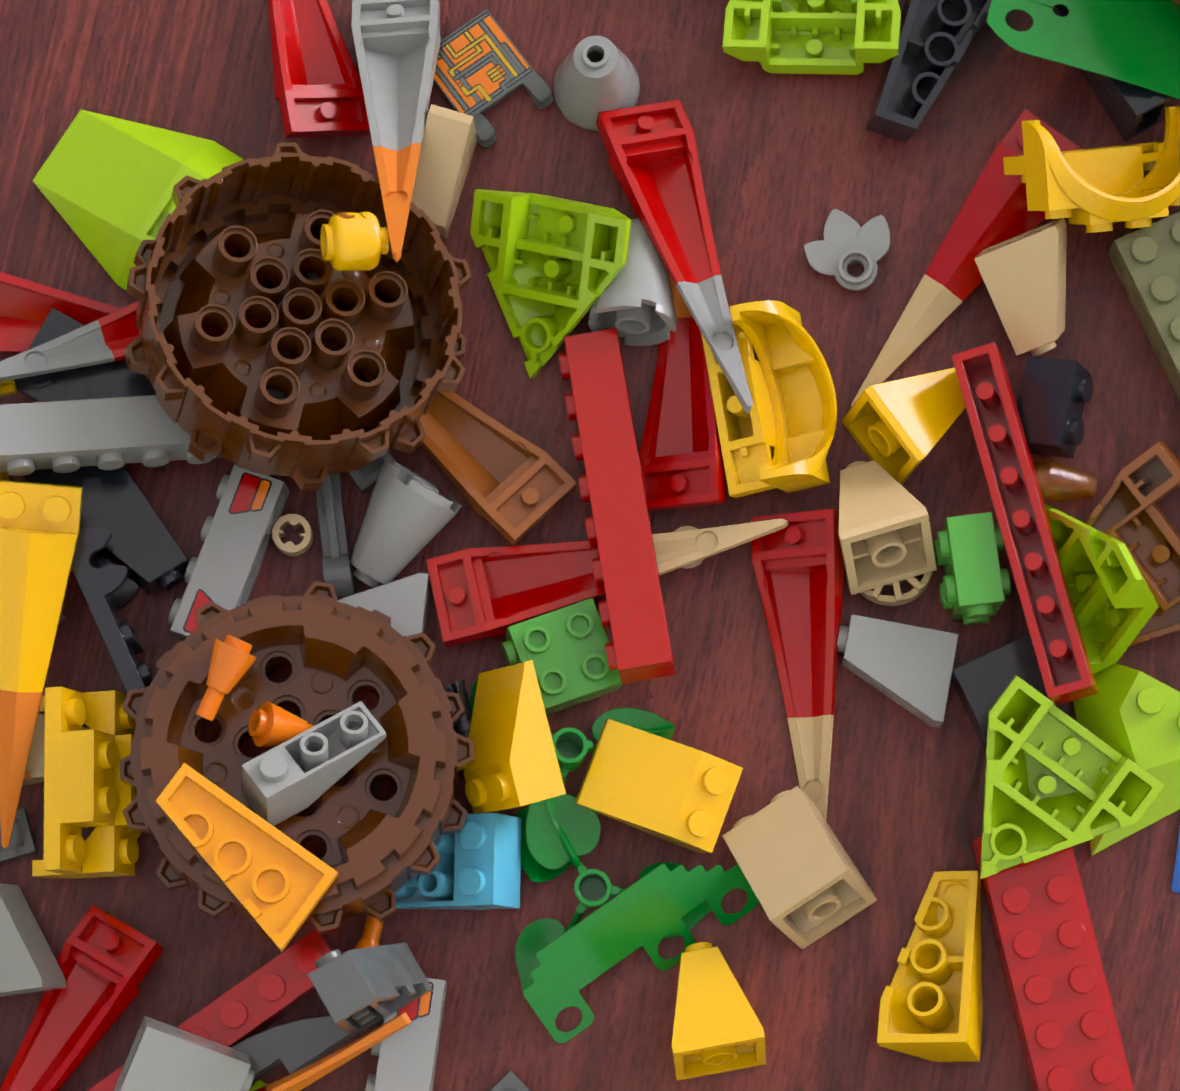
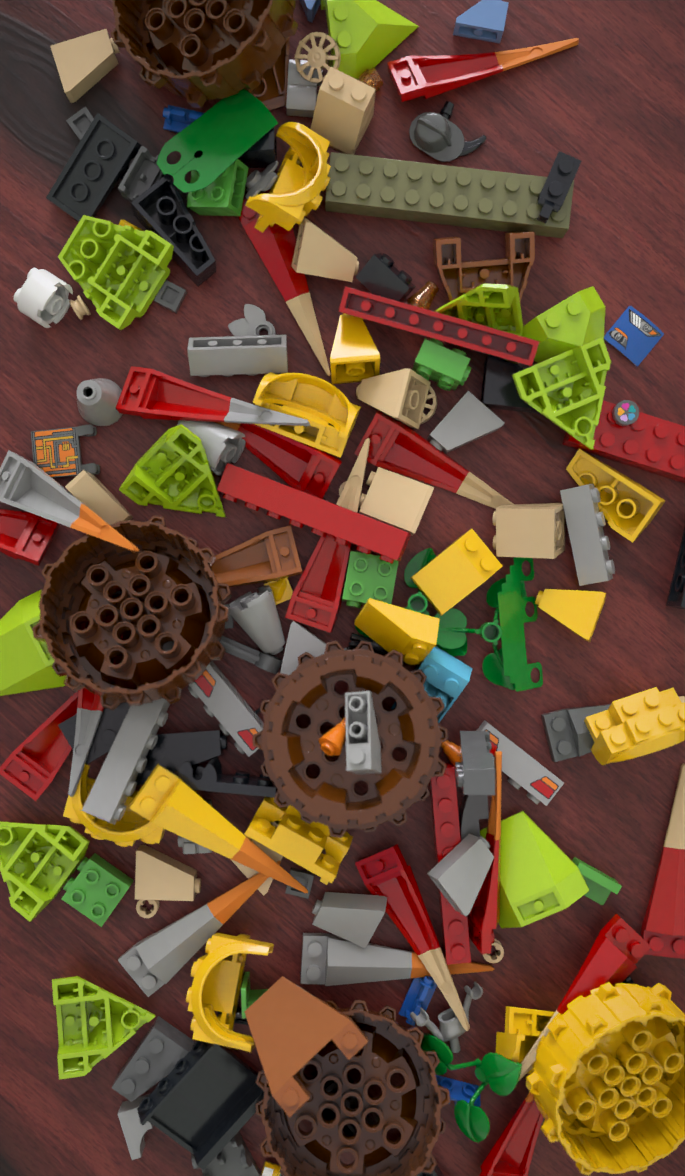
camera: 65 degrees left, 10 degrees up
(227, 666) = (293, 749): orange cone -> none
(255, 860) = (396, 790): light orange wing -> none
(296, 522) = (240, 677): tan bush -> none
(353, 241) = (114, 565): yellow head -> none
(465, 529) = (281, 590): none -> yellow tile
(714, 624) = (395, 500): none -> tan slope
(794, 249) = (237, 355): none -> light grey brick
(824, 97) = (170, 296): none -> dark grey tile
(846, 963) = (587, 534): none -> light grey brick
(1028, 84) = (223, 195): none -> bright green brick
(1073, 900) = (625, 413): none -> dark grey tile
(1084, 127) = (261, 181): none -> light grey plate

